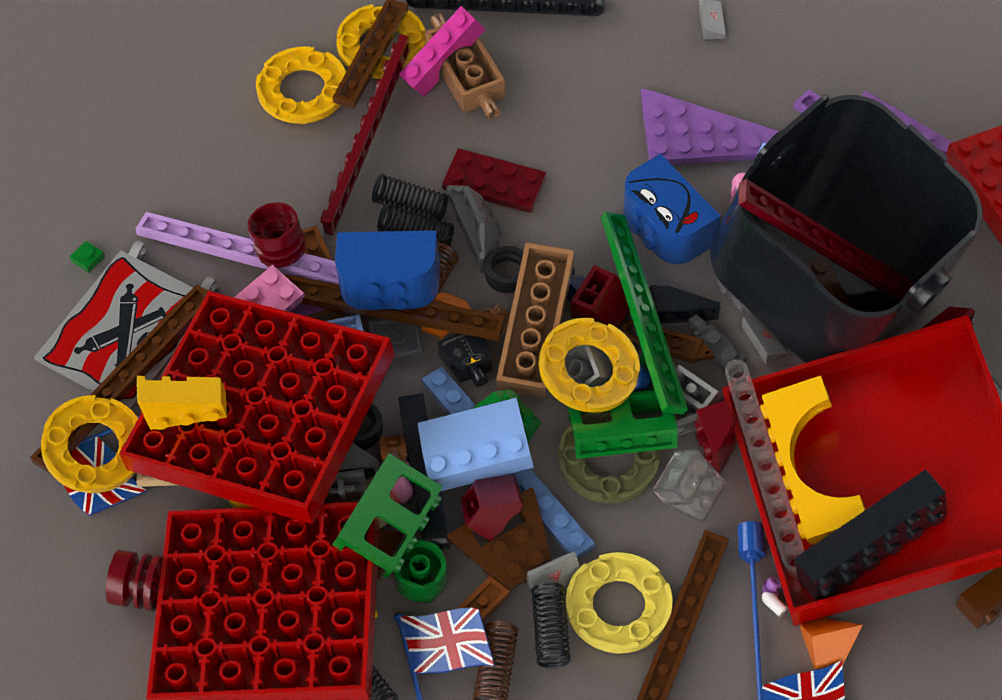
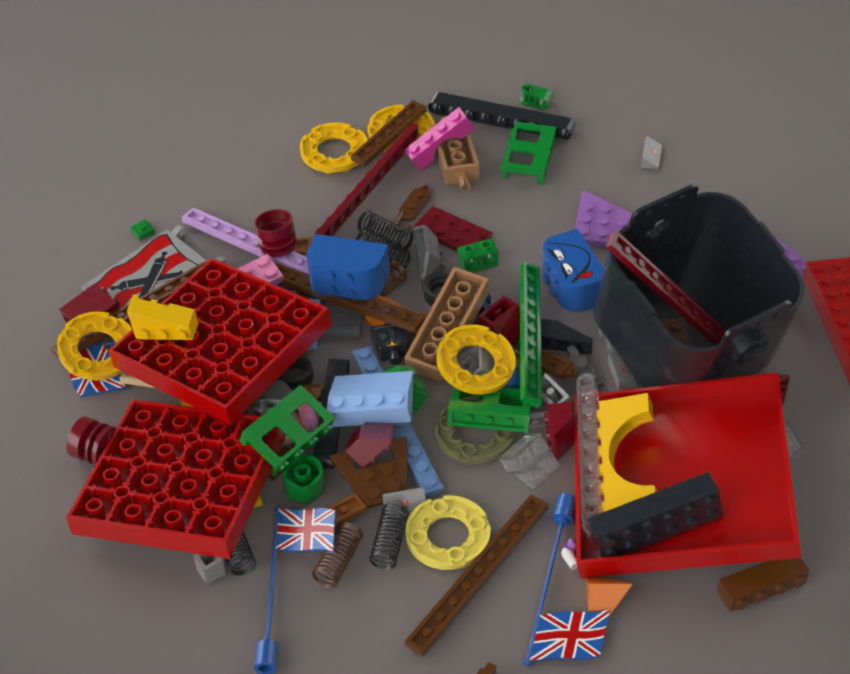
camera: 15 degrees right, 10 degrees down
(59, 383) = (91, 300): none -> dark red brick
(431, 153) = (412, 206): none -> reddish brown plate
(539, 212) = (478, 256): none -> green brick
(573, 40) = (542, 151): none -> green window

